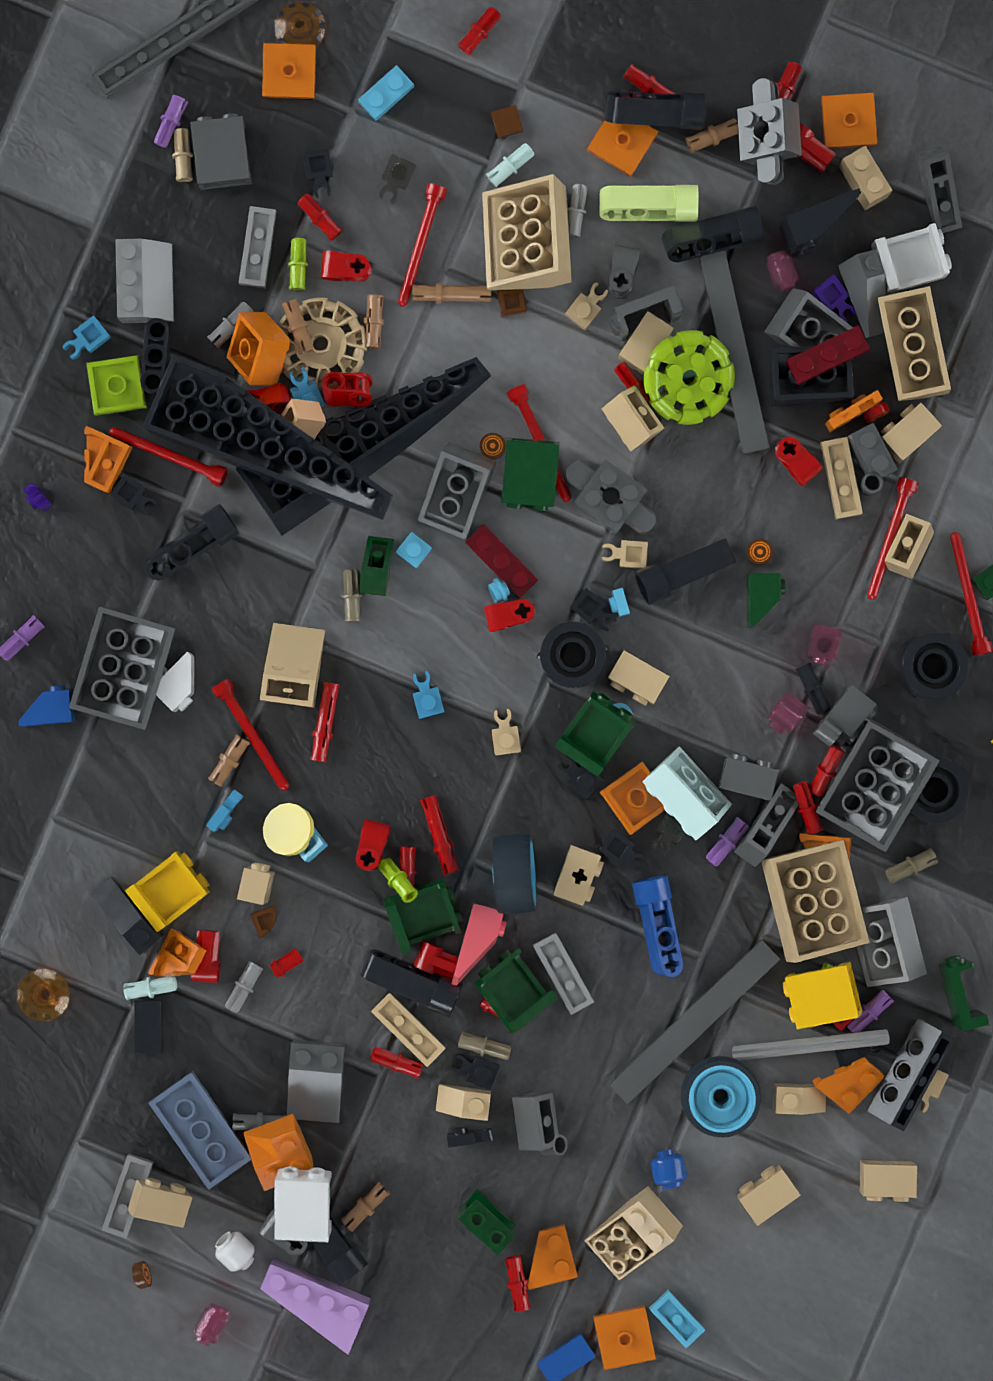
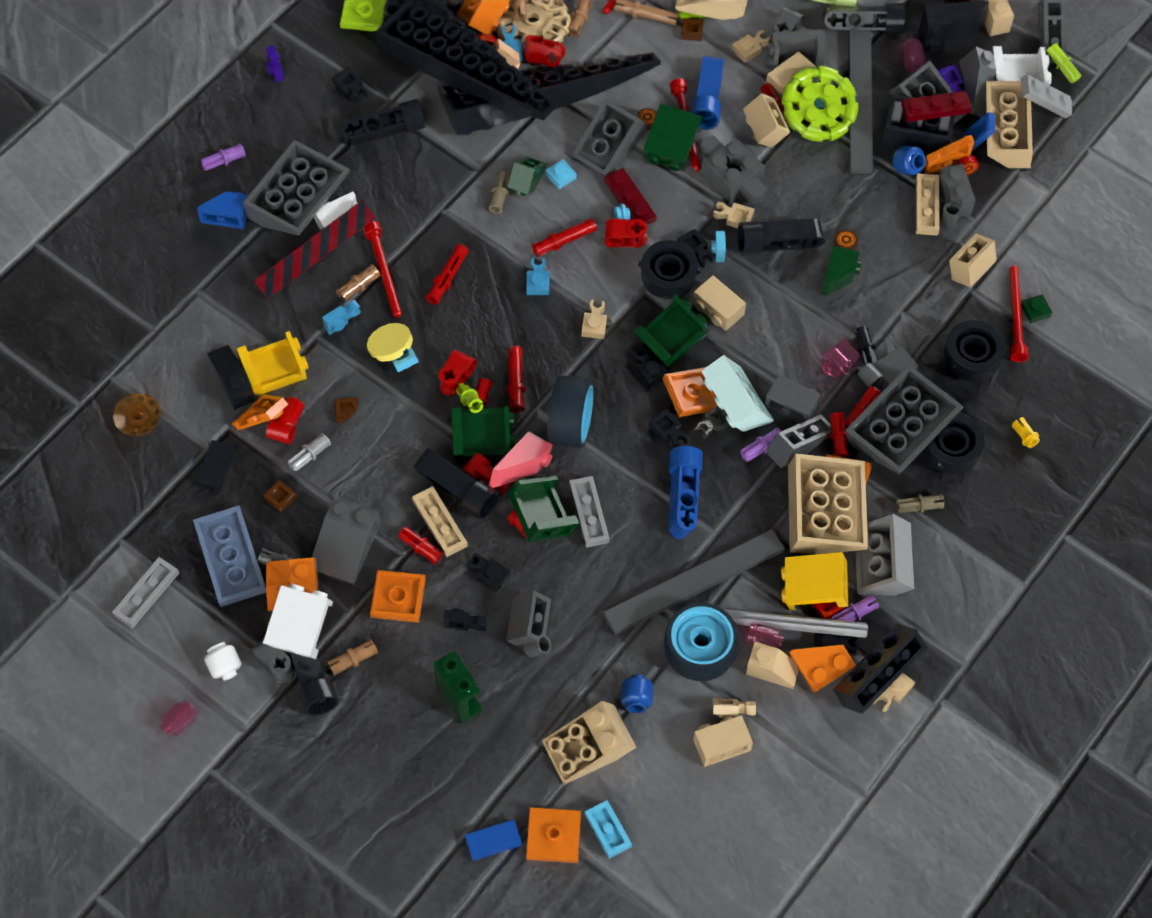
camera: 10 degrees right, 25 degrees down
(104, 460) = (336, 55): orange wing -> none
(141, 1275) = (132, 660): reddish brown tile -> none
(150, 987) = (228, 433): light aqua axle -> none
(160, 1202) = (172, 599): tan brick -> none
(168, 737) = (314, 249): none -> tile
(216, 474) = (420, 85): red piece -> none
(228, 1044) = (279, 496): none -> reddish brown tile
(256, 883) = (348, 370): tan brick -> none
(286, 963) = (352, 443): red pin -> none
(292, 665) = (433, 228): tan slope -> none
(318, 1302) = (284, 725): lavender wedge -> none
(391, 1126) = (398, 596): none -> orange plate
(441, 637) = (557, 240): none -> red pin
(463, 1102) = (471, 591): tan slope -> none
(484, 1046) = (501, 551): dark tan axle -> none
(517, 1283) = (469, 759): red pin -> none
(552, 1258) = (507, 747): orange wing -> none
(558, 420) = (707, 99): none -> blue beam
(566, 886) = (624, 437): tan brick -> none
(766, 1157) = (727, 707): none -> tan plate
(784, 1069) = (765, 635): none -> clear pink brick
(801, 464) = (893, 181): red piece -> none
(809, 427) = (909, 160): none -> blue head
(832, 635) = (886, 308): clear pink brick -> none
(882, 370) = (981, 129): none -> blue tile
(888, 1179) = (838, 756): tan brick -> none
(906, 488) = (979, 224): red piece -> none
(910, 432) = (993, 184): tan brick -> none
(951, 297) = (1046, 96): none -> light grey plate
(956, 996) = (941, 631): dark green panel -> none
(960, 233) = (1063, 63): none -> lime axle

